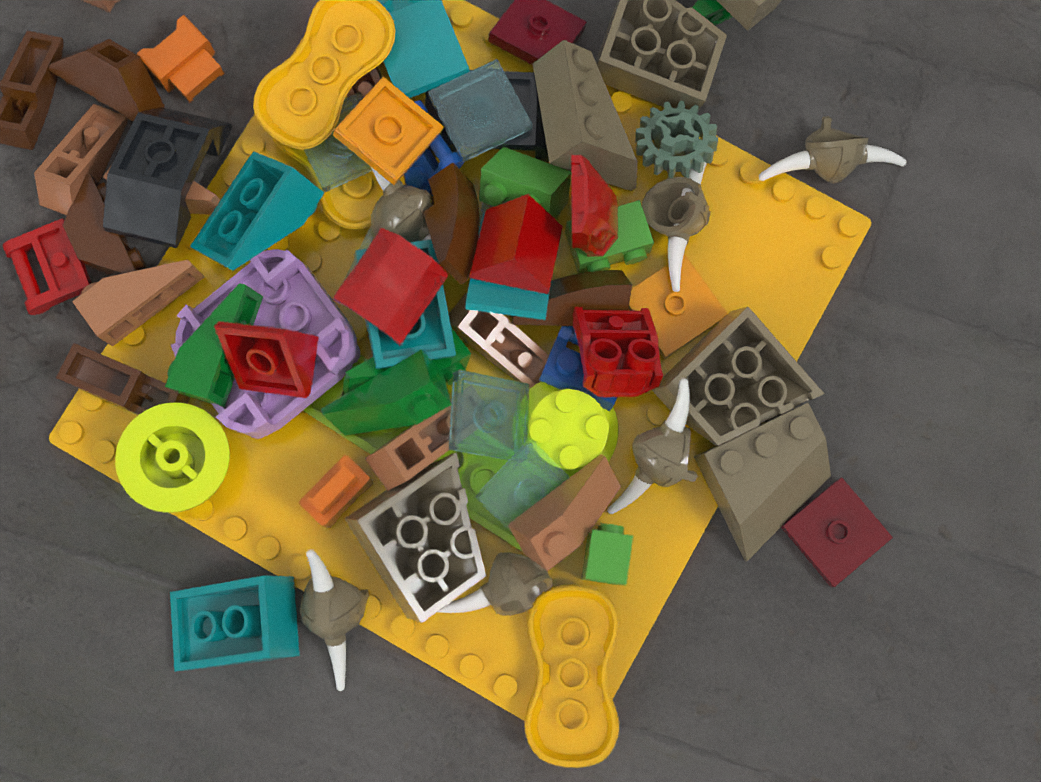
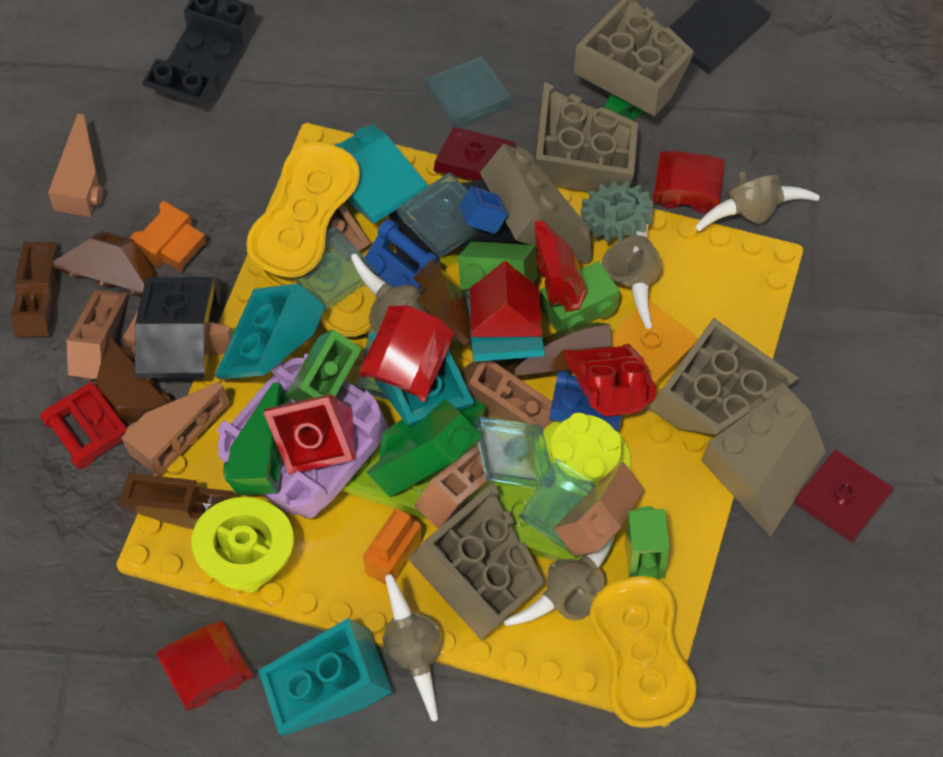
camera: 10 degrees left, 20 degrees down
(113, 575) = (203, 665): none -> red slope
(297, 284) = (324, 367): none -> bright green brick
(388, 130) = (371, 243): light orange plate -> none
(521, 118) = (483, 209): none -> blue slope
(661, 453) = (672, 449): dark tan helmet -> none
(767, 112) = (688, 180): none -> red slope

